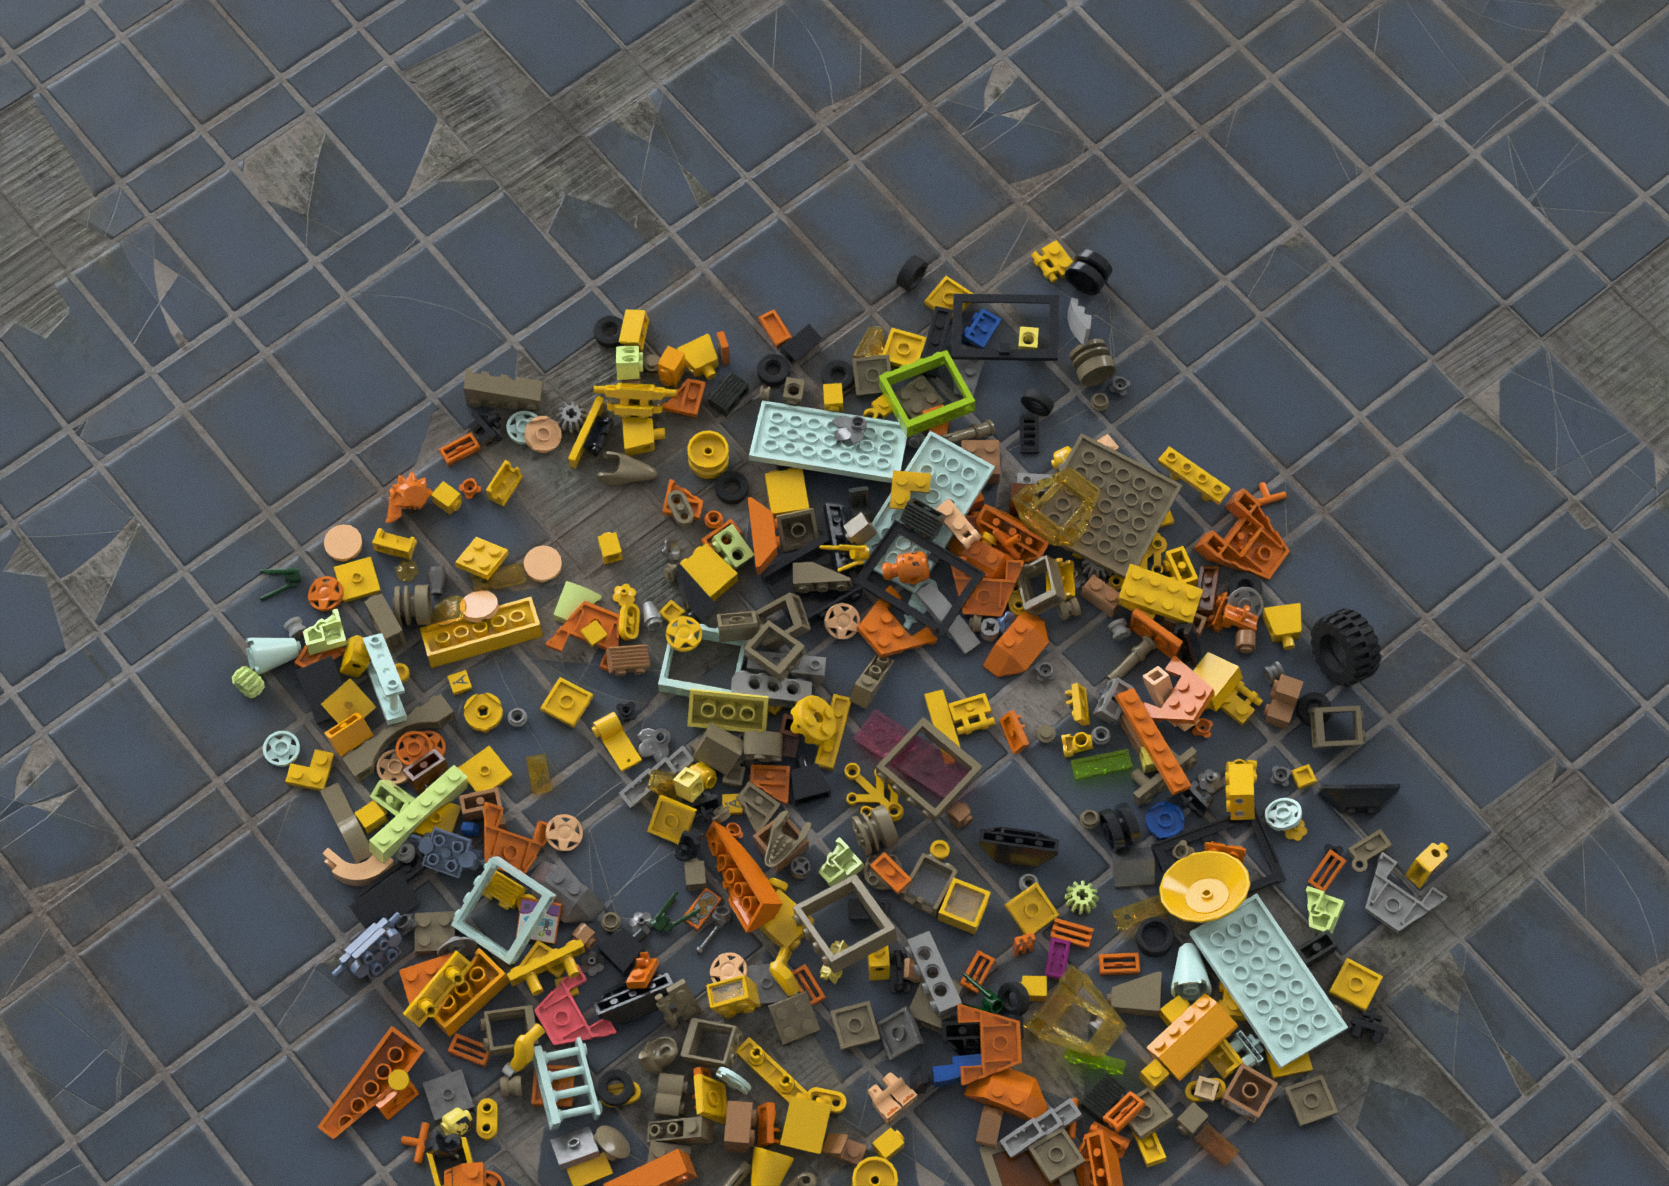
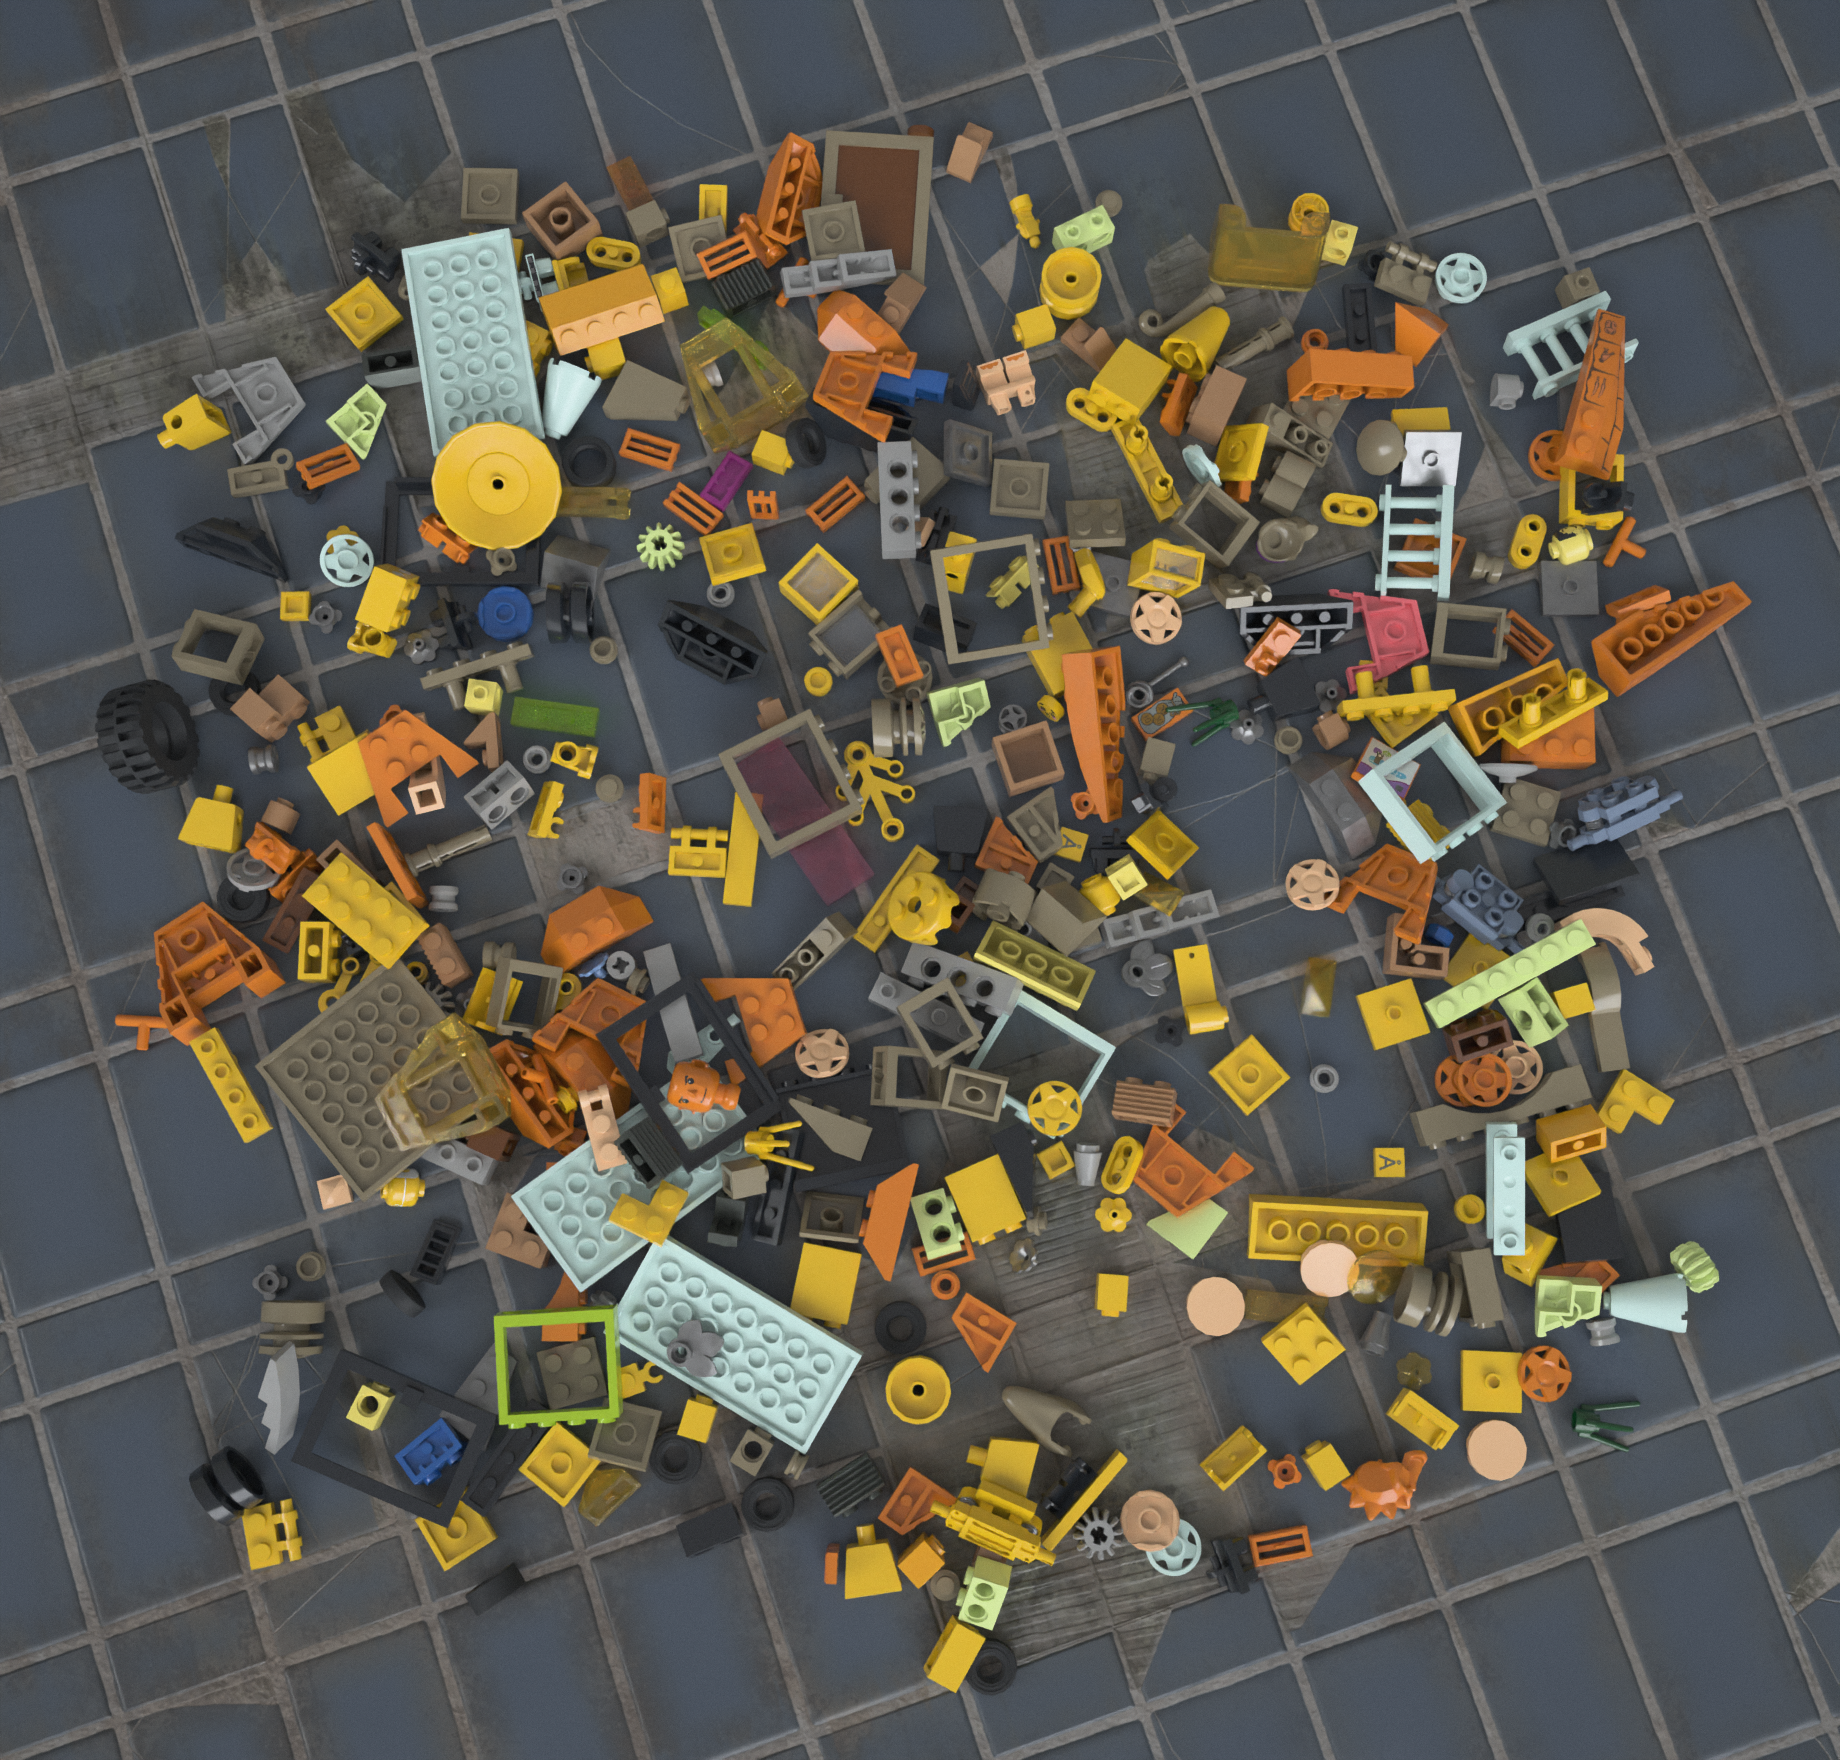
camera: 160 degrees left, 15 degrees up
(281, 748) = (1666, 1153): light aqua wheel -> none
(398, 1079) = (1636, 613): yellow tile -> none
(485, 722) = (1366, 1119): yellow plate -> none
(502, 391) = (1189, 1615): dark tan wedge -> none
(523, 1050) = (1462, 595): yellow arm -> none
(594, 633) = (1180, 1159): yellow tile -> none
(624, 1096) = (1360, 496): black tyre -> none
(680, 509) = (990, 1312): dark tan plate -> none
(721, 814) = (1093, 828): dark tan plate -> none
(774, 328) = (738, 1577): orange tile -> none
(781, 845) = (1030, 740): dark tan animal -> none
(974, 432) = (514, 1280): dark tan pin -> none
(990, 1001) = (836, 441): dark green plant -> none
(1153, 741) = (473, 706): orange plate -> none
(1190, 647) = (357, 839): black hinge -> none
(1206, 1089) = (613, 244): tan plate -> none

